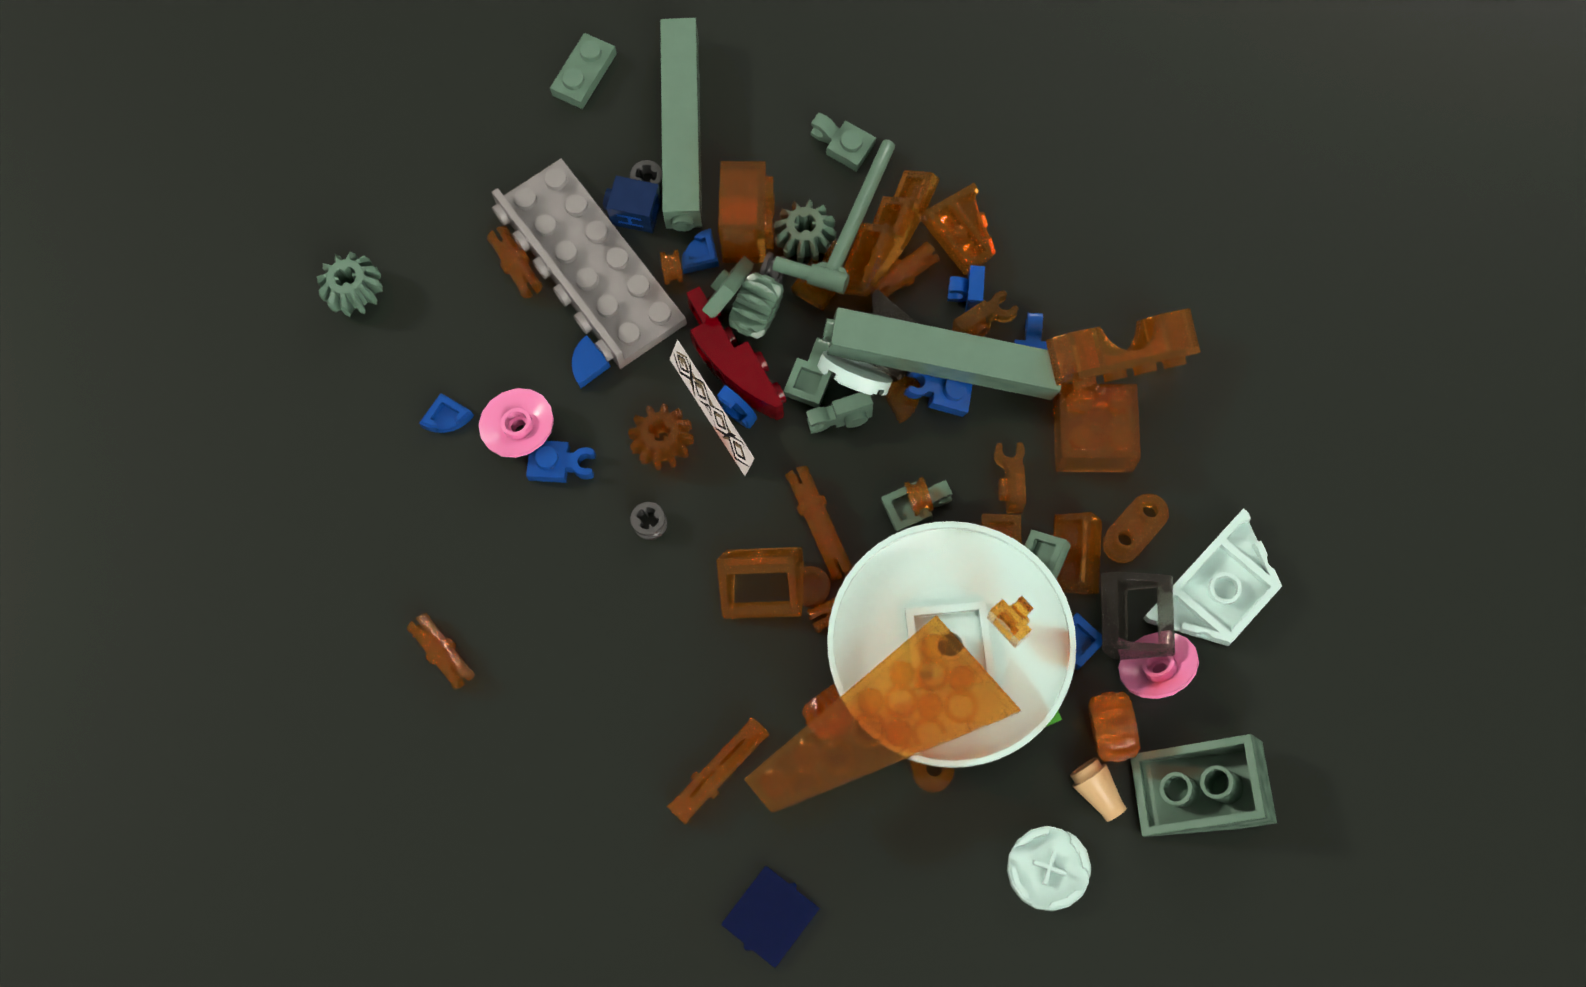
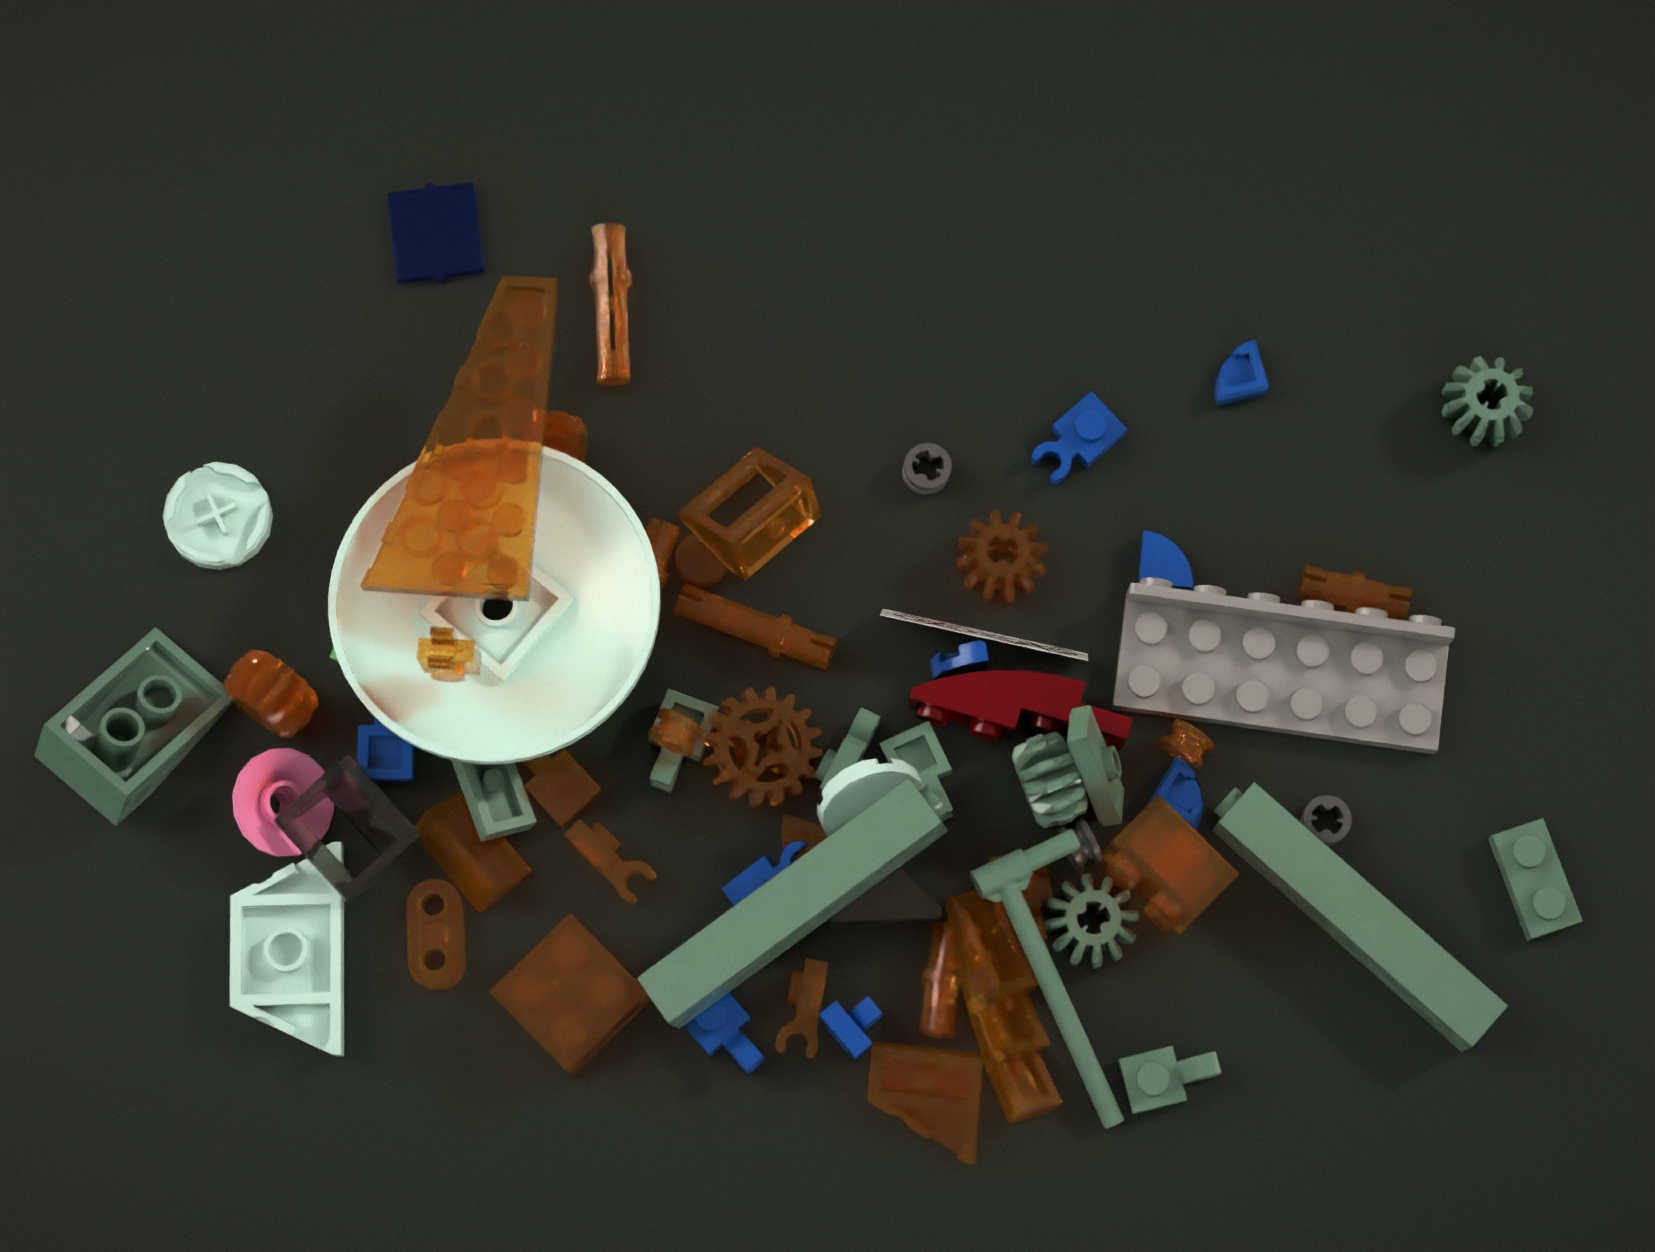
camera: 130 degrees right, 5 degrees up
(440, 651) = (986, 159): clear orange pin -> none
(513, 410) = (1173, 412): bright pink dish -> none
(633, 204) = (1303, 770): dark blue brick -> none
(879, 456) = (742, 737): none -> clear orange gear
(1088, 353) = (589, 1156): clear orange arch -> none
(1098, 788) = (236, 628): tan cone -> none

